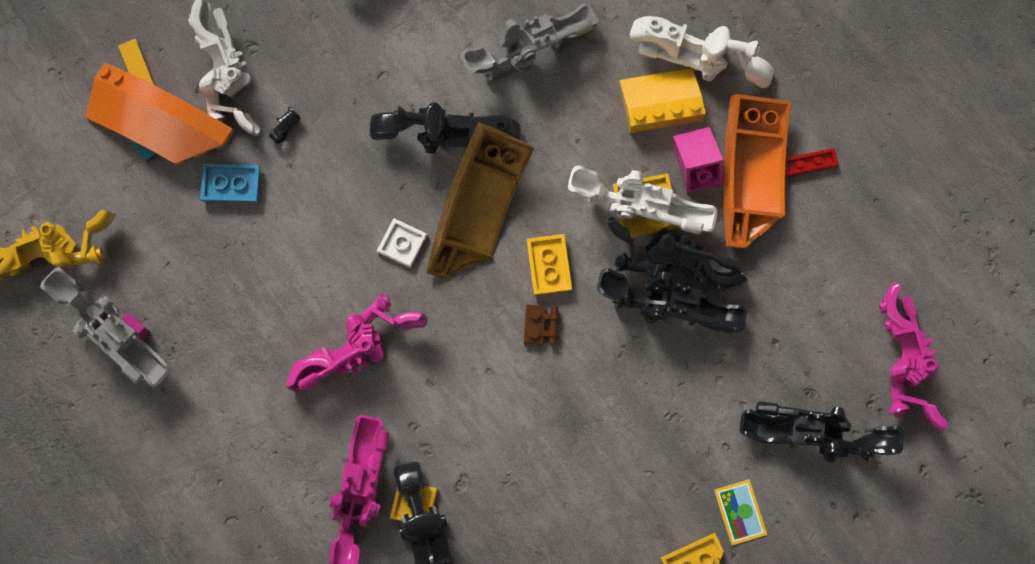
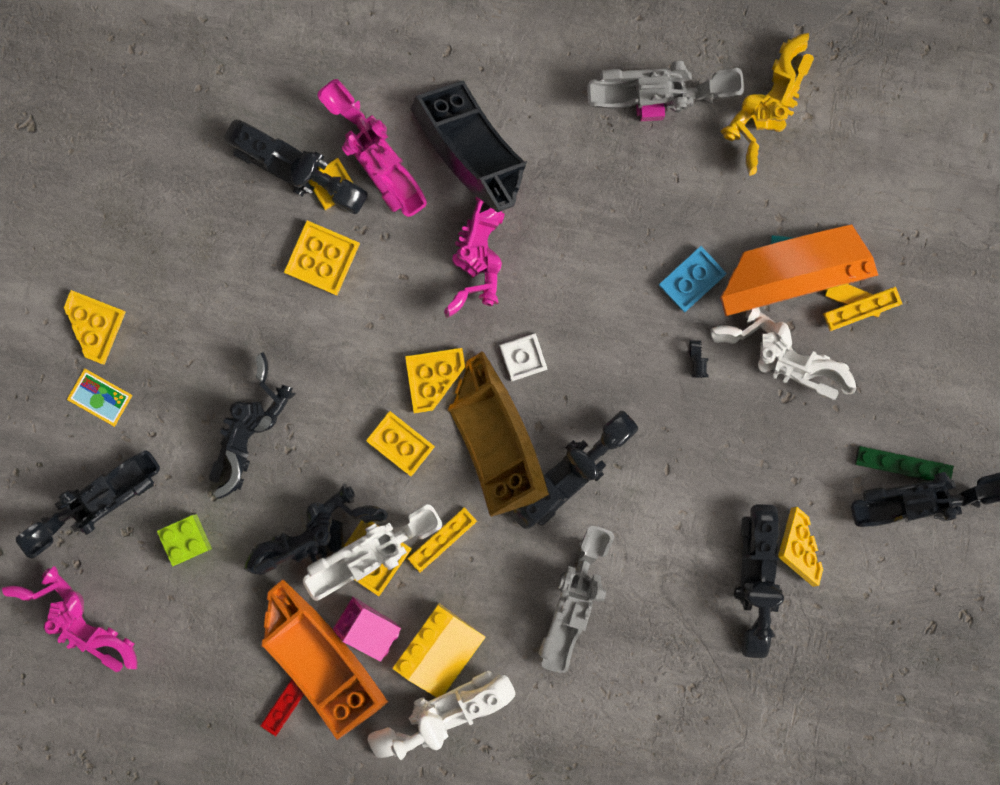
camera: 130 degrees right, 10 degrees up
(139, 53) = (862, 308): none -> yellow tile
(284, 424) = (470, 144): none -> black slope
(474, 453) = (322, 258): none -> yellow plate
(479, 289) = (432, 376): none -> yellow plate
(534, 325) = (368, 390): reddish brown plate -> none
(562, 170) = (442, 539): none -> yellow tile
(645, 384) = (247, 420): none -> black piece
(672, 301) = (278, 499): black piece -> none
(773, 343) = (184, 540): none -> lime brick

